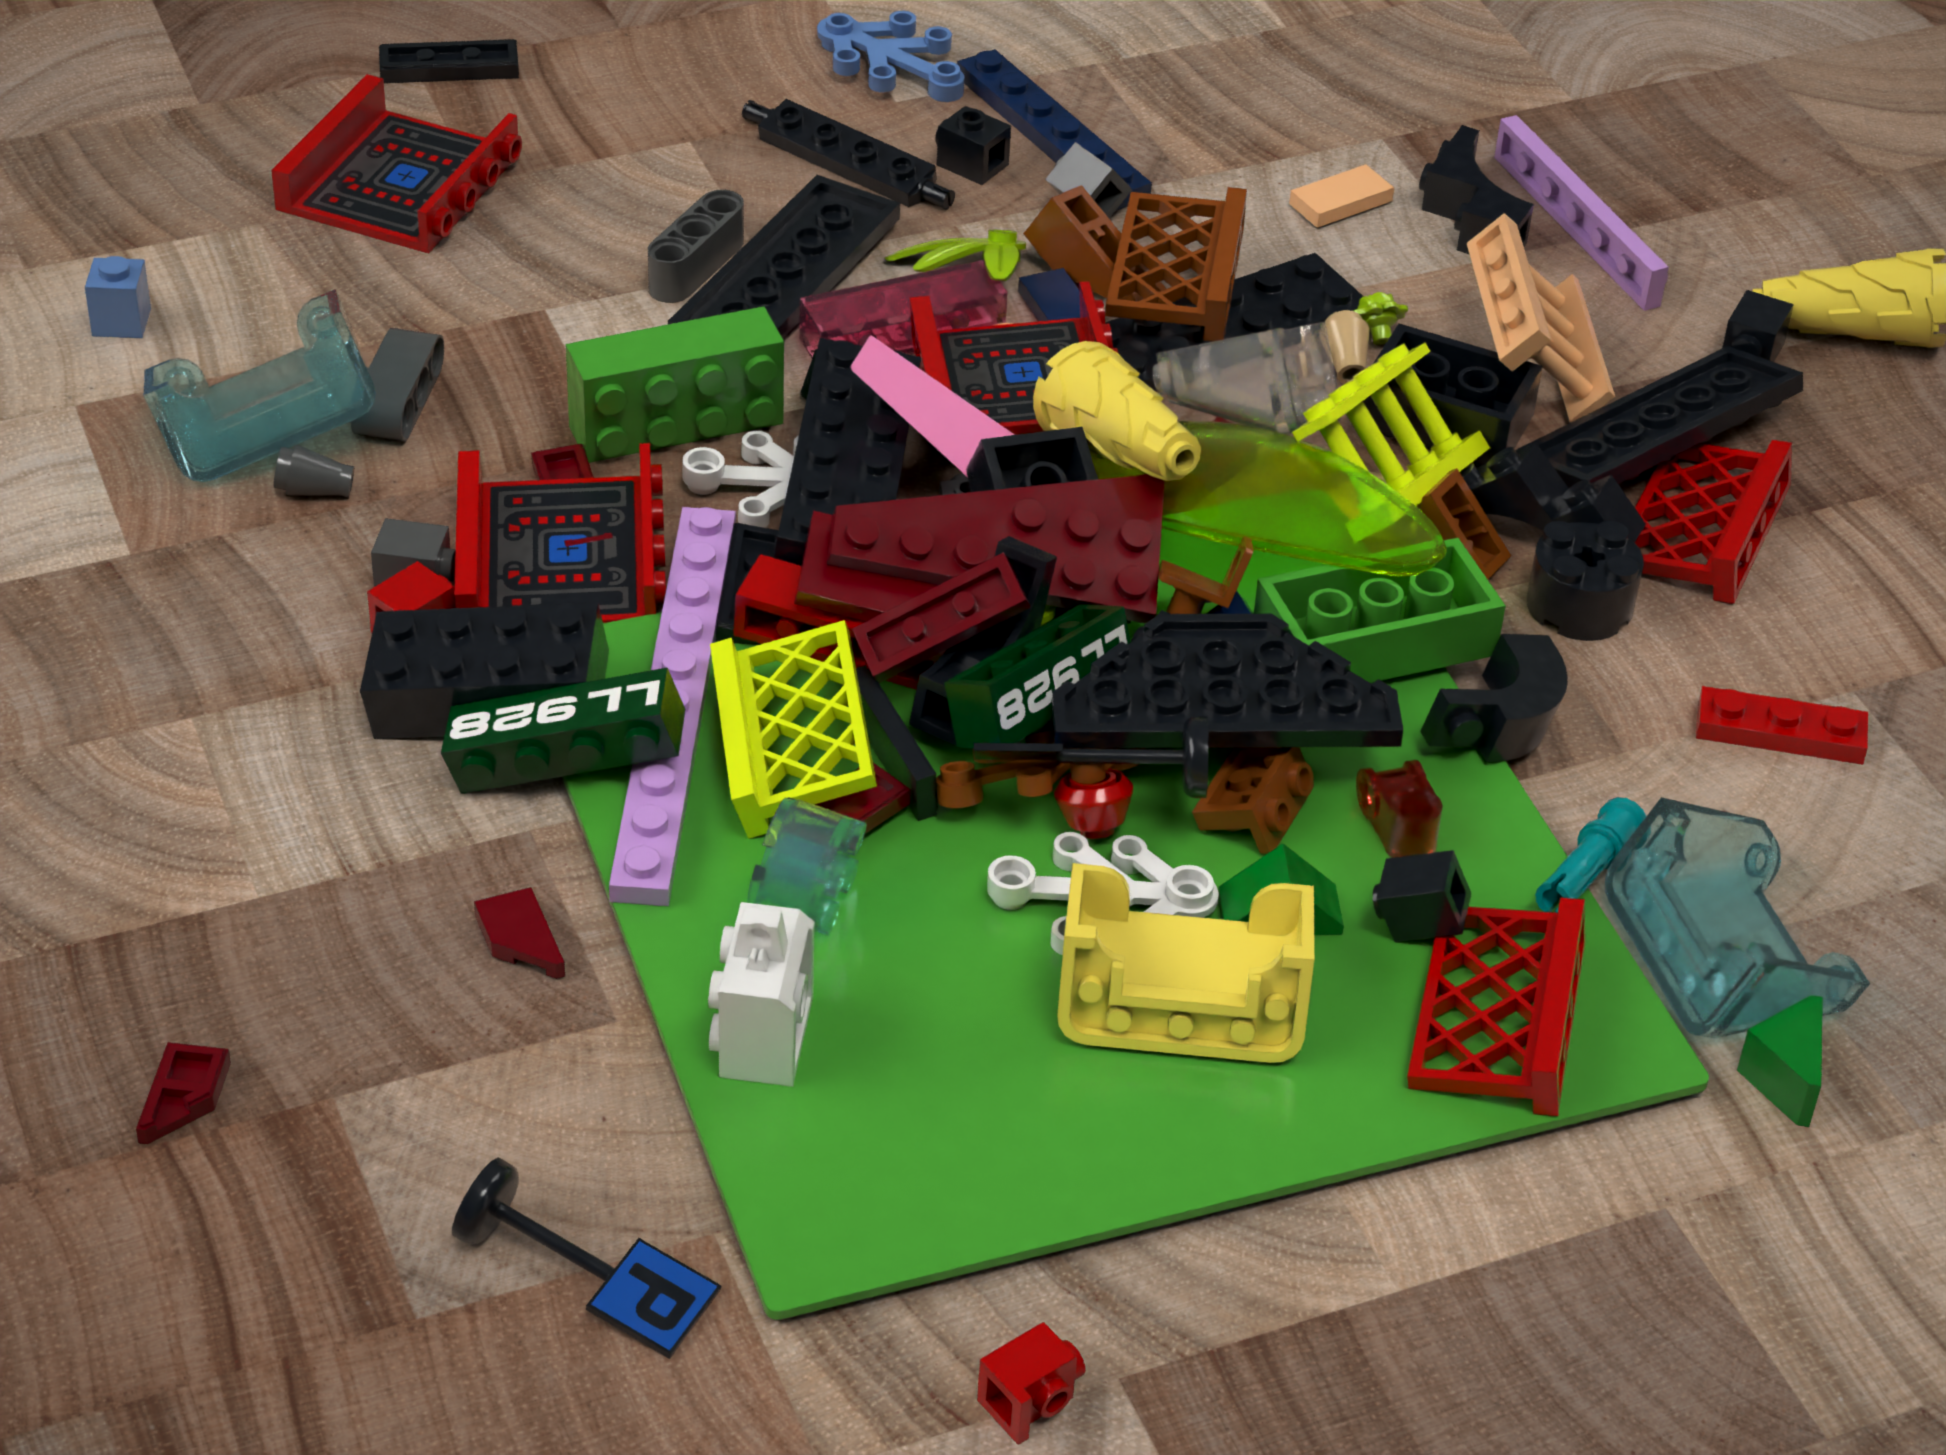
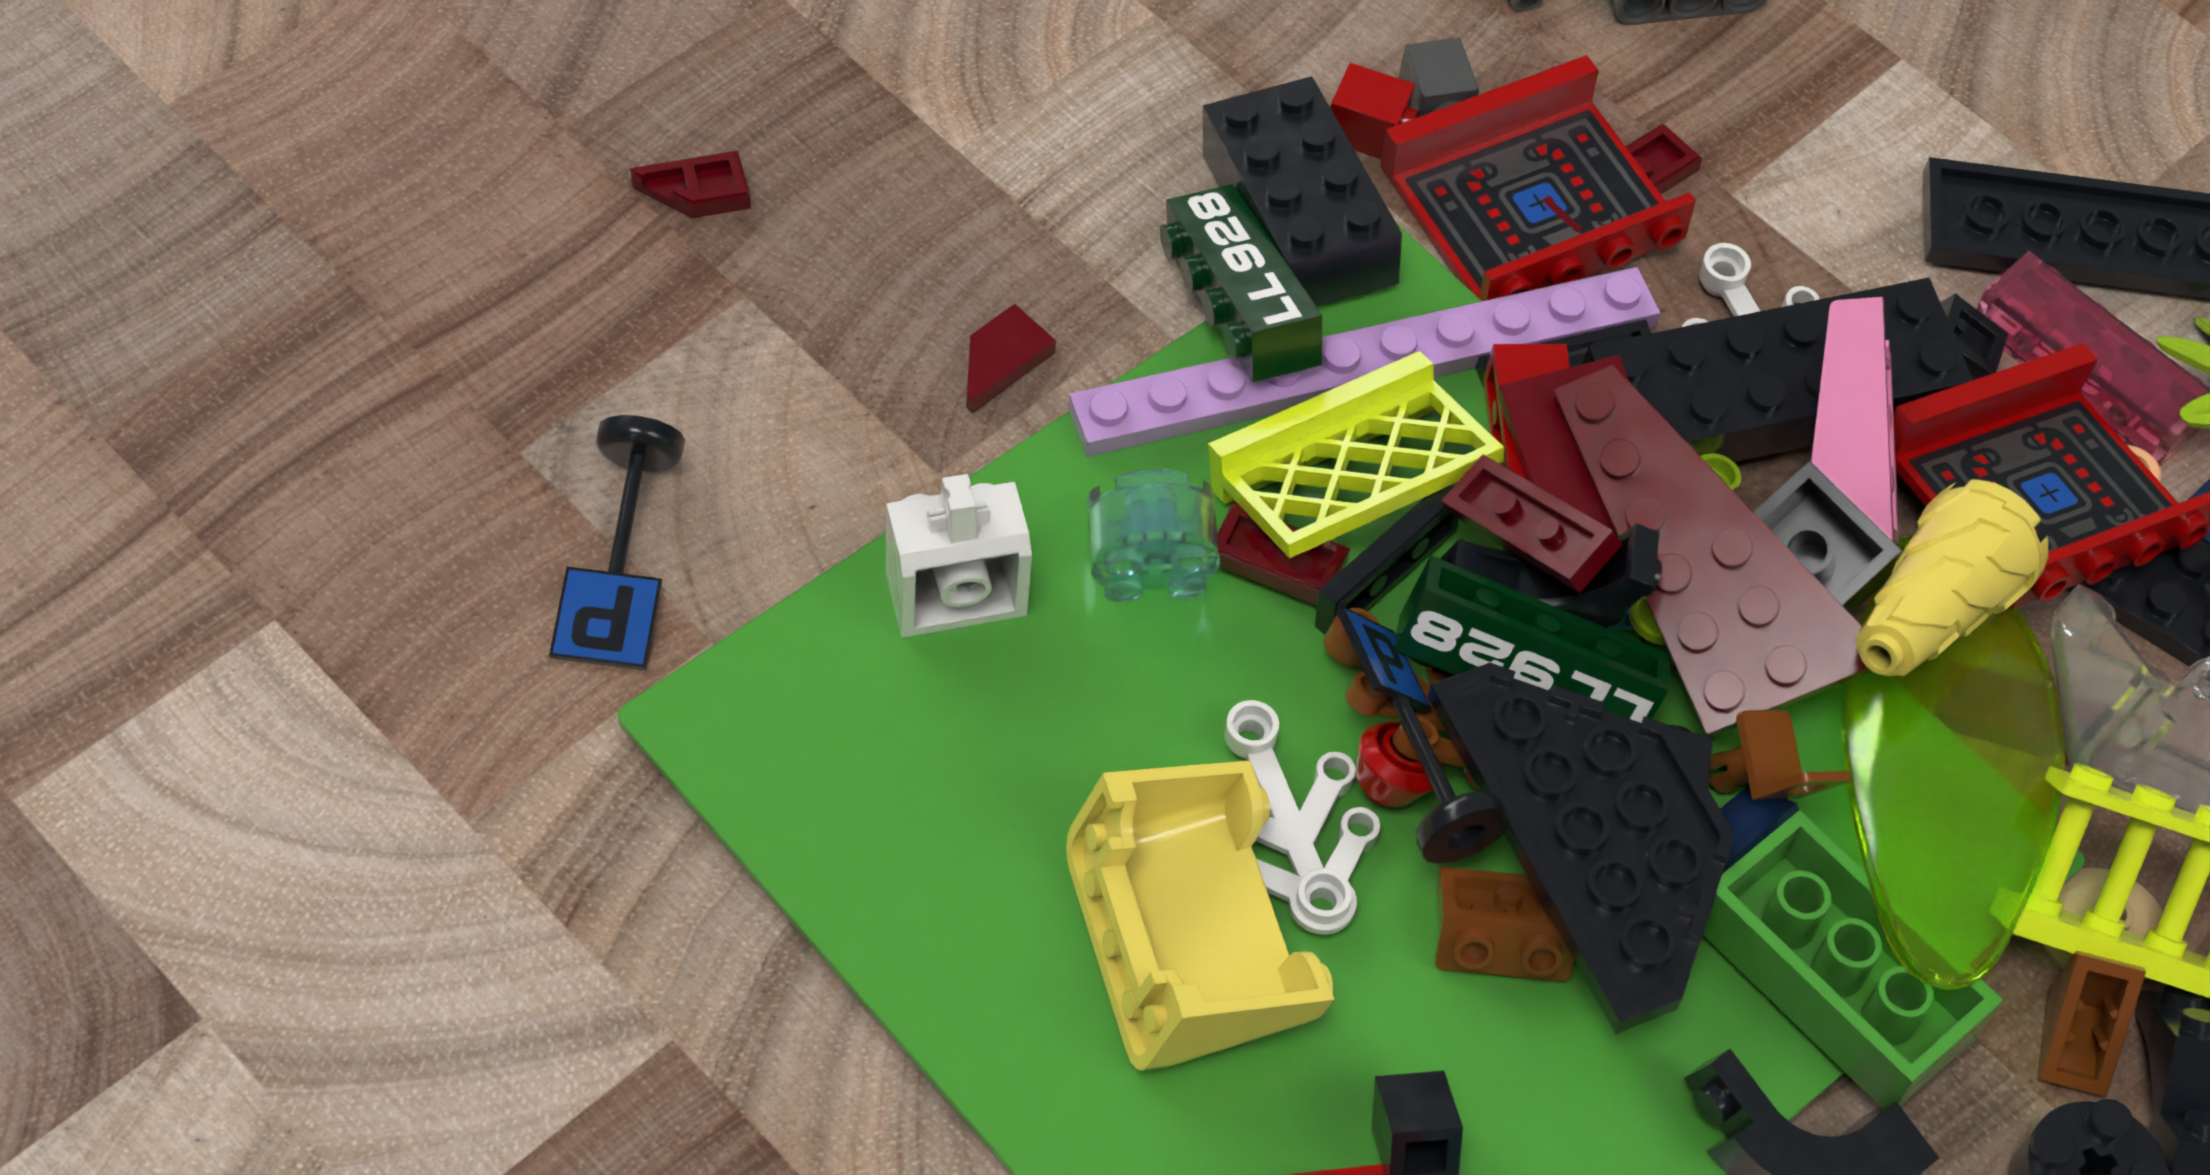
camera: 65 degrees right, 15 degrees up
(675, 383) = (1812, 189): bright green brick -> none
(695, 246) = (2074, 138): dark grey beam -> none
(1028, 1379) = (611, 953): red brick -> none
(1277, 867) = (1370, 1000): green slope -> none
(1401, 808) = (1568, 1068): clear red piece -> none

